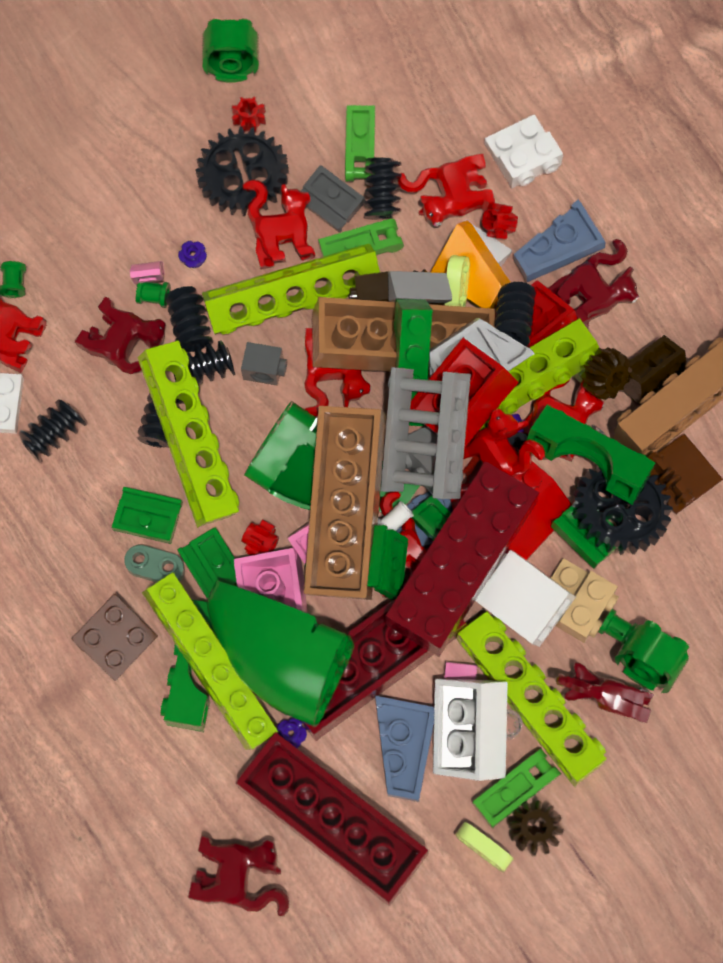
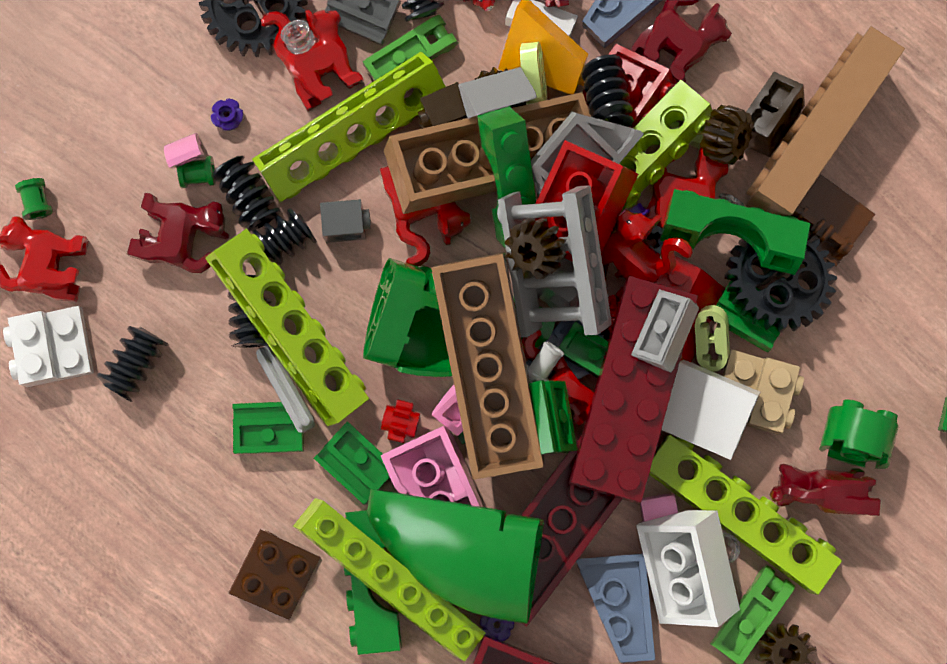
camera: 20 degrees left, 10 degrees up
(153, 564) = (292, 480): sand green plate -> none
(171, 486) = (285, 389): none -> light grey axle
(269, 204) = (301, 44): none -> clear bush
(410, 413) = (535, 248): none -> dark brown gear
(502, 511) = (665, 330): none -> light grey slope
(555, 542) = (705, 338): none -> yellowish green beam
(616, 627) = (811, 410): green bush -> none

